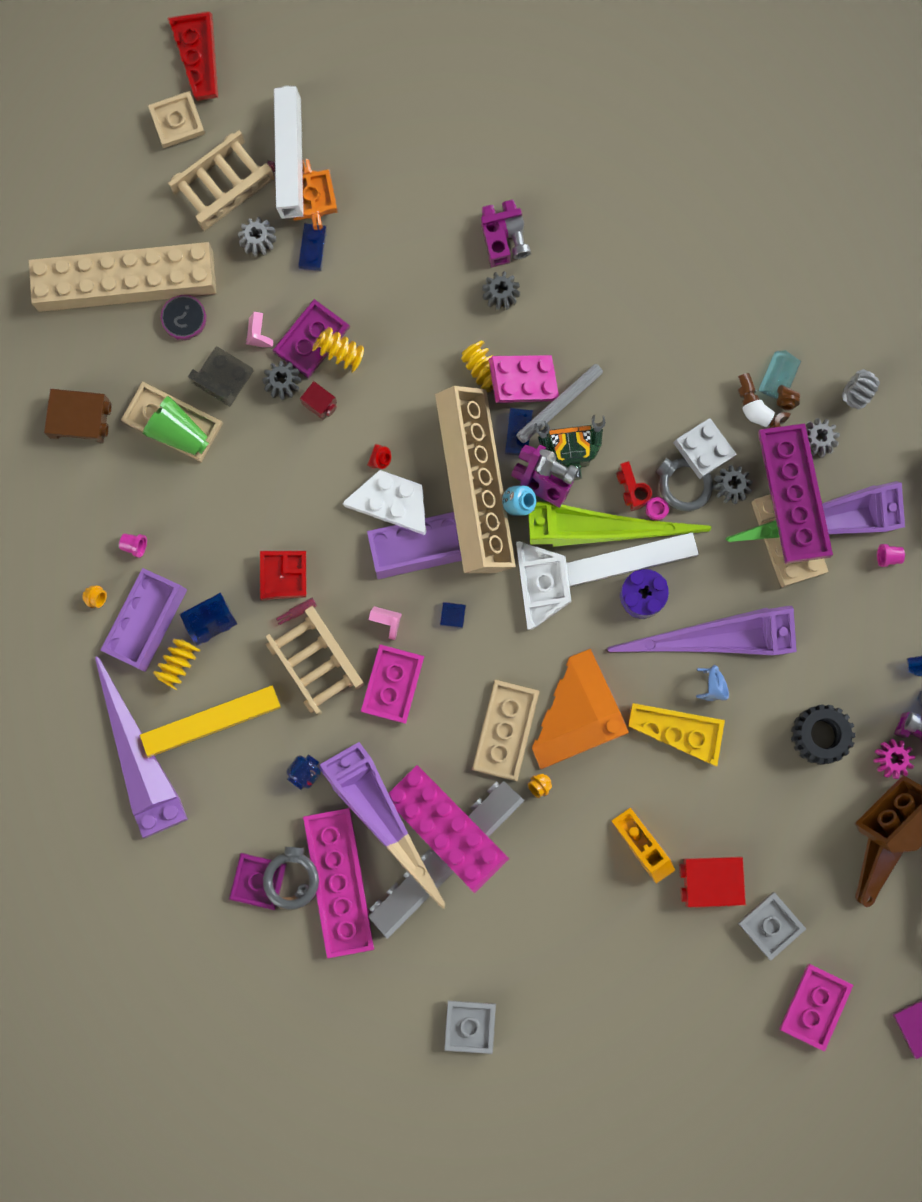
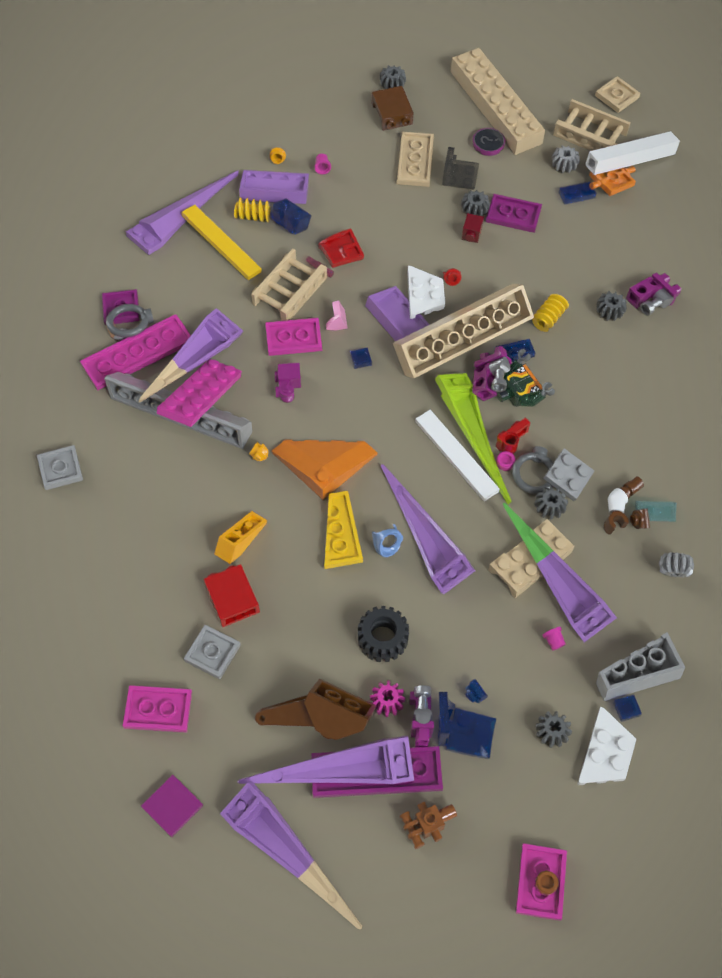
camera: 65 degrees right, 20 degrees down
(22, 402) = (392, 77): none -> dark grey gear
(175, 428) = (410, 151): bright green cone -> none
(197, 50) = (673, 89): red wing -> none
(254, 332) = (501, 178): bright pink tile -> none
(303, 771) = (207, 302): clear blue head -> none
(340, 348) = (512, 224): yellow piece -> none
(450, 715) = (288, 378): none -> magenta brick
(505, 730) = (291, 419): tan tile -> none
(519, 500) = (469, 359): medium azure head -> none
(523, 378) = (555, 337): dark pink plate -> none
(543, 583) = (410, 402): white wing -> none
(560, 402) = (553, 369): light grey axle -> none
(655, 587) = (435, 469): dark purple brick -> none
(795, 493) = (564, 538): magenta plate -> none
(827, 443) = (620, 544): light grey gear -> none

